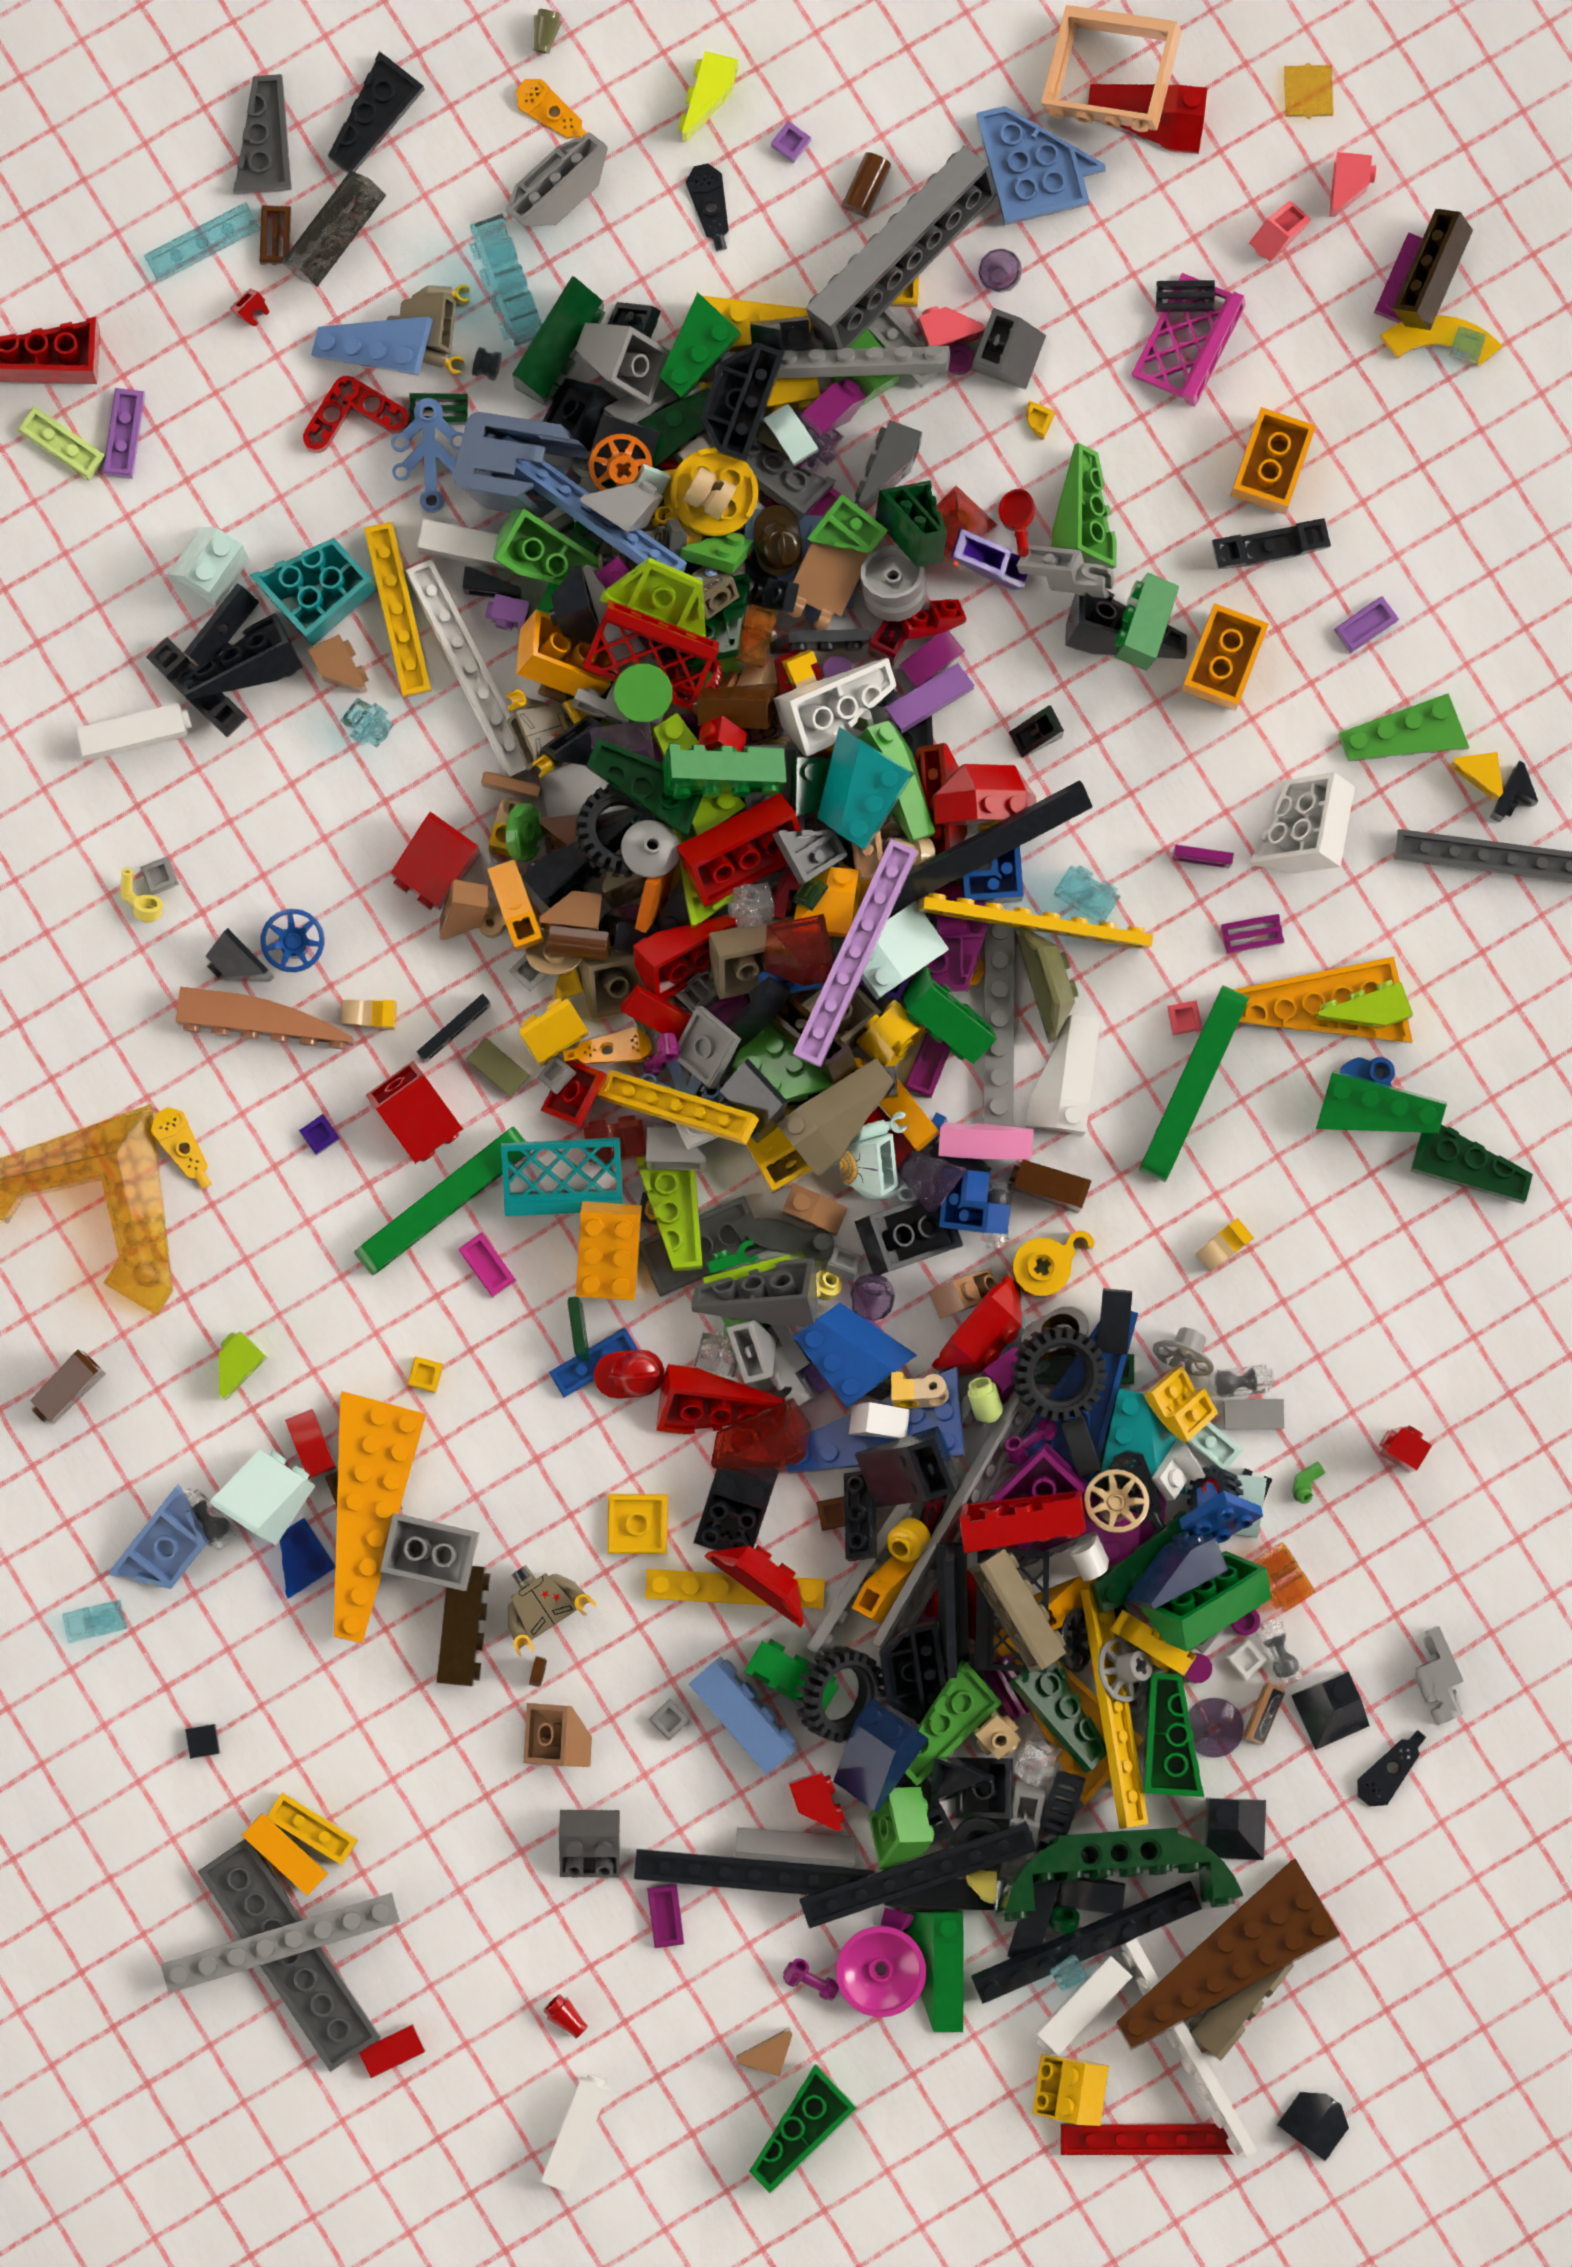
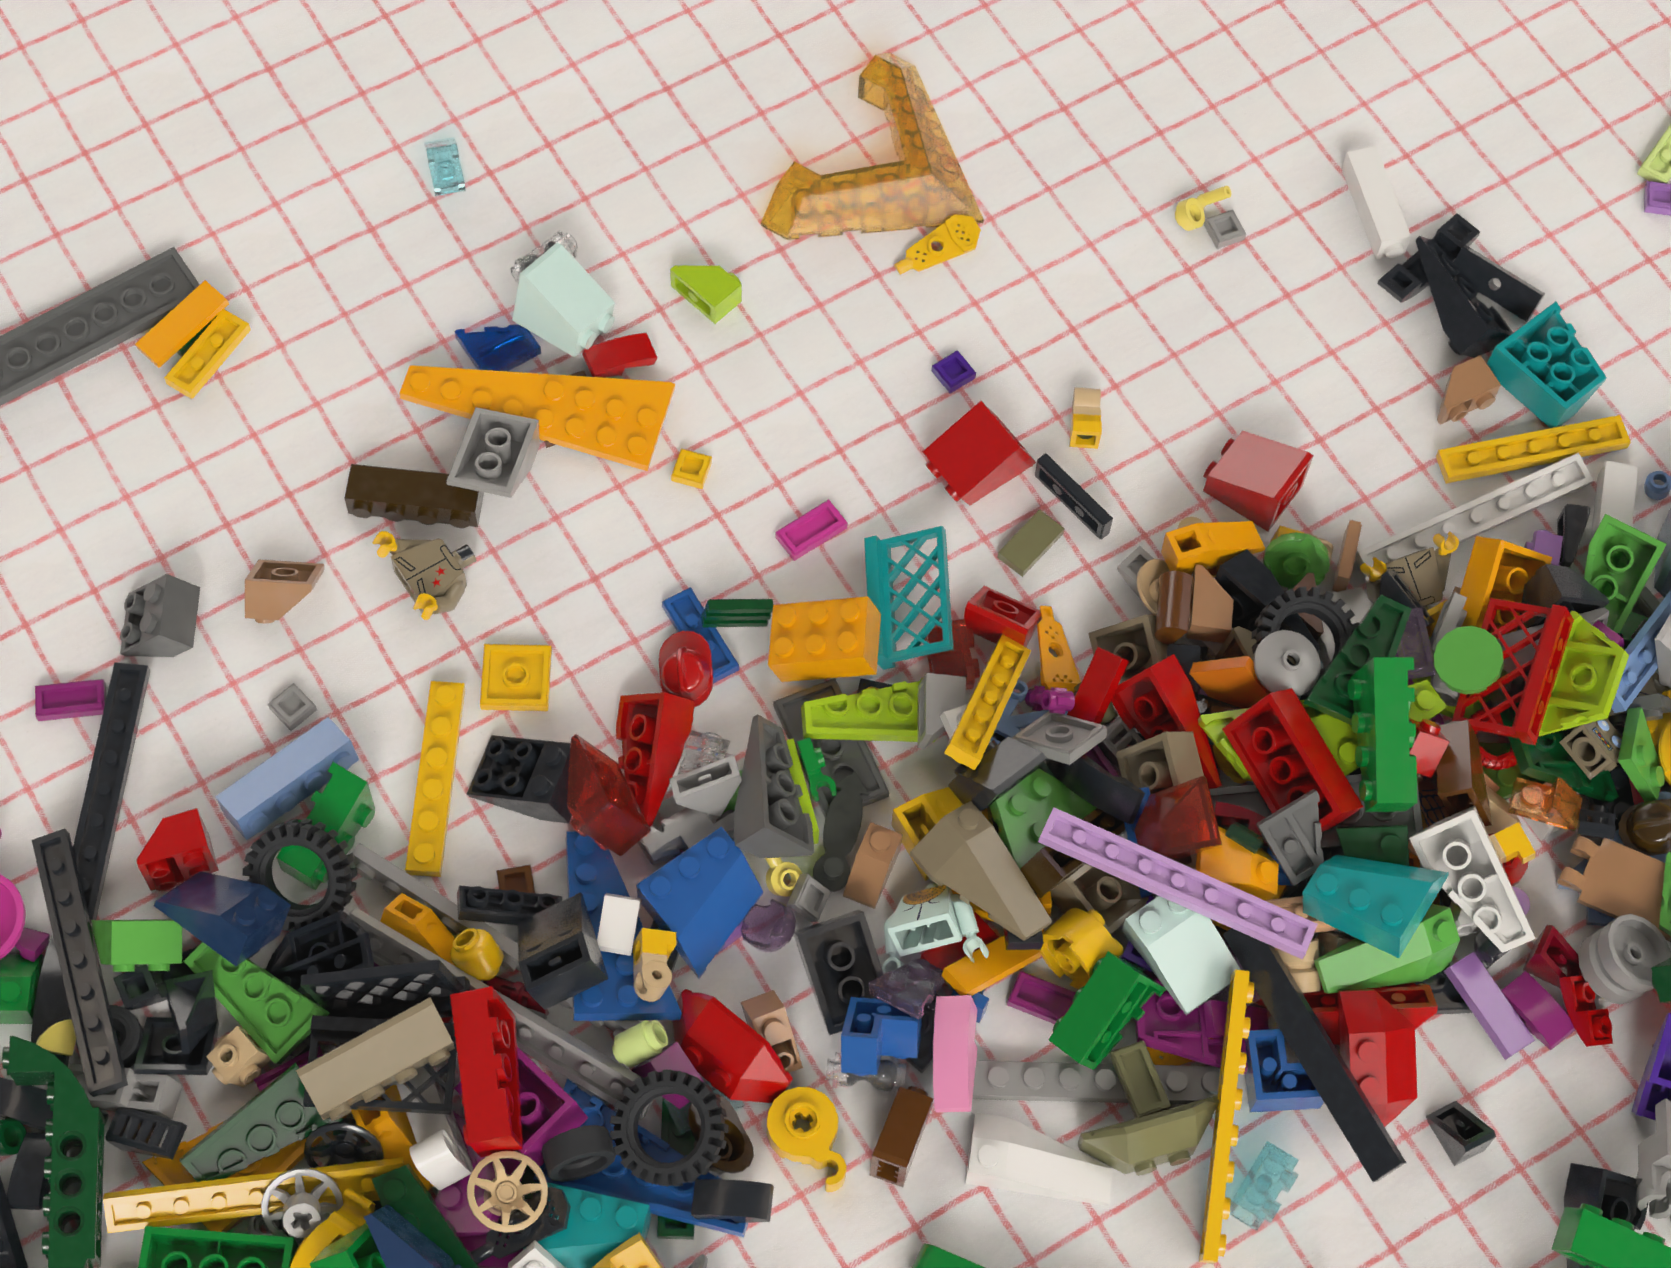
camera: 90 degrees right, 20 degrees down
(66, 1386) = (690, 137): reddish brown slope -> none
(164, 1544) = (520, 220): medium blue wing -> none
(202, 1741) = (311, 258): black tile -> none
(210, 564) = (1562, 268): light aqua slope -> none
(235, 961) = (1141, 289): black slope -> none
(253, 1017) = (1078, 307): nougat slope -> none
(280, 1942) = (88, 319): light grey plate -> none
(292, 941) = (1162, 342): blue wheel -> none
(367, 723) = (1414, 409): clear light blue brick -> none
(438, 1204) = (876, 476): green beam -> none
(464, 908) = (1207, 497): medium nougat slope -> none
(538, 1671) = (356, 570): reddish brown tile -> none
(552, 1031) = (1073, 588): yellow slope -> none
(556, 1074) = (1024, 597): light grey tile -> none
(568, 985) = (1123, 611): yellow tile -> none
(751, 905) = (1228, 776): clear brick -> none
(762, 1578) = (440, 797): red wedge -> none
(795, 1847) = (130, 834): light grey tile -> none
(820, 641) = (1547, 880): black wing -> none
(1002, 990) = (1139, 1079): none -> olive tile
(1017, 1448) = (578, 1086): magenta bar -> none
(1037, 1761) = (200, 1105): clear brick -> none

